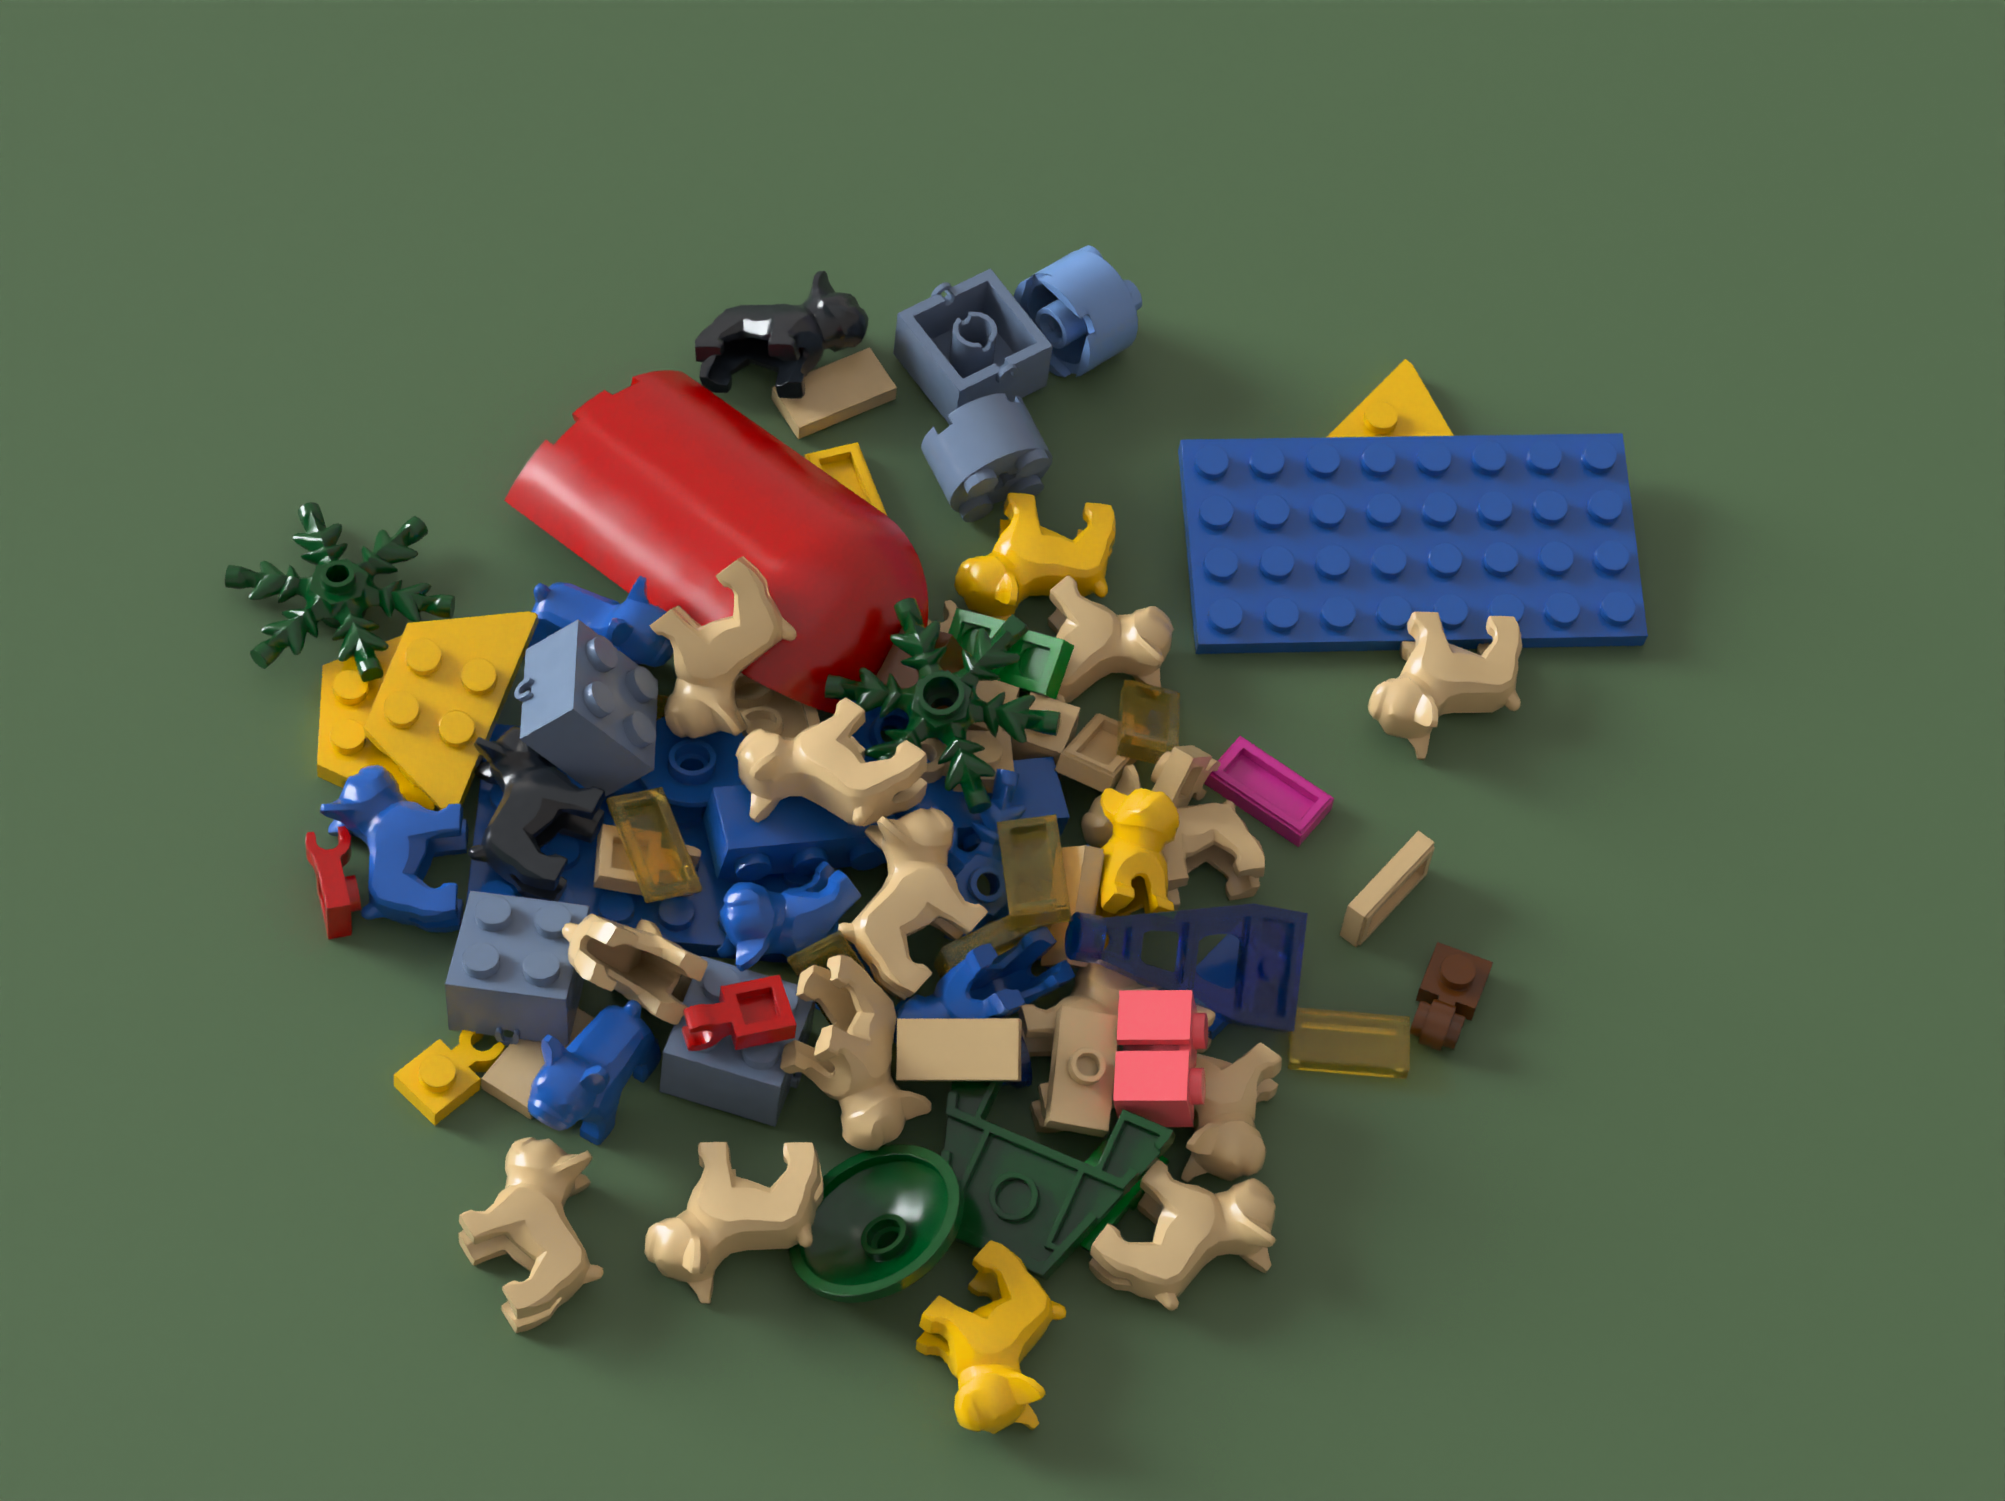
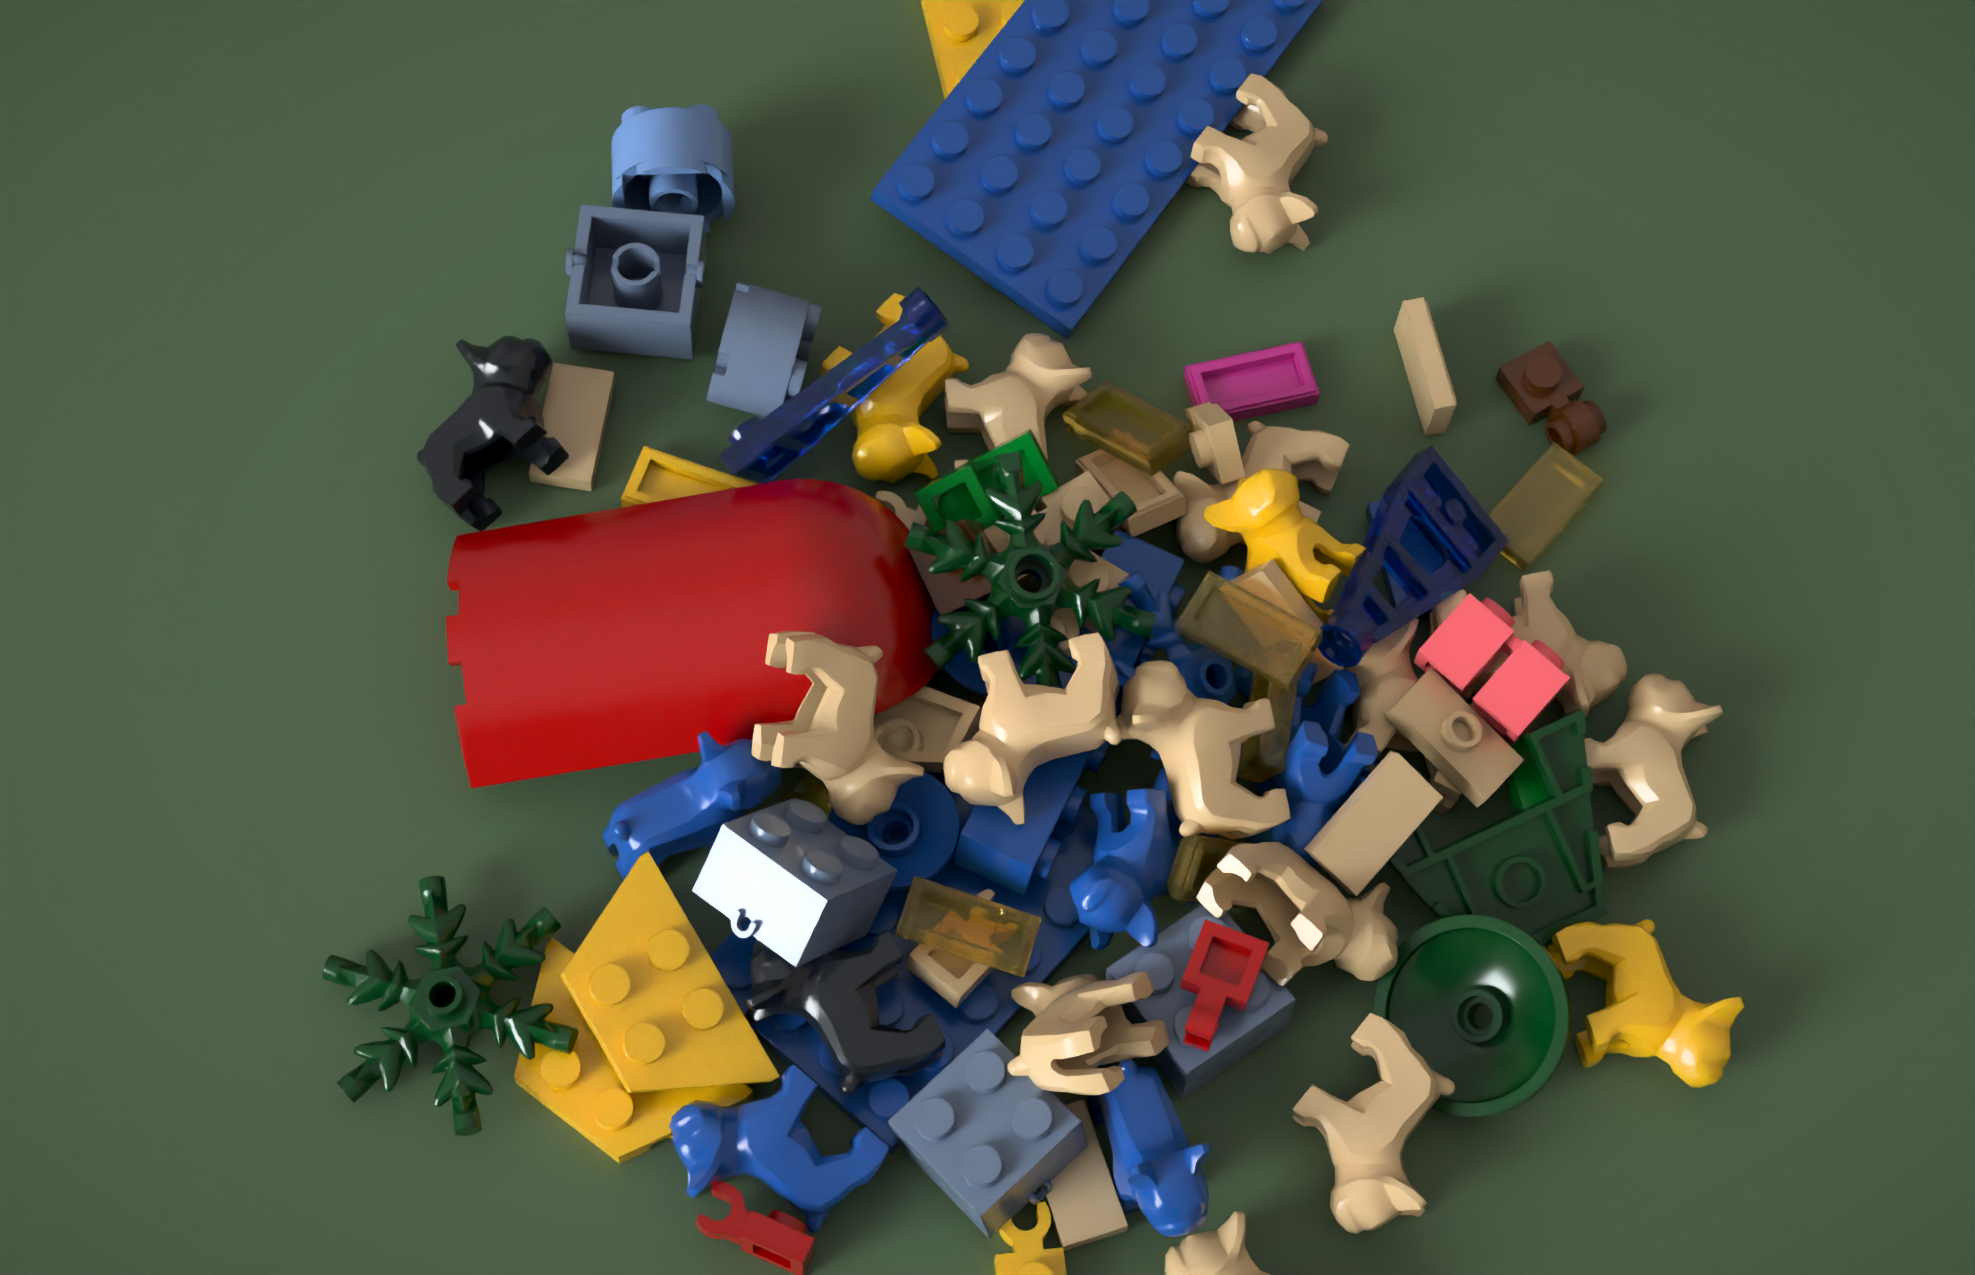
camera: 50 degrees left, 10 degrees up
(913, 501) = (772, 444): none -> clear blue plate

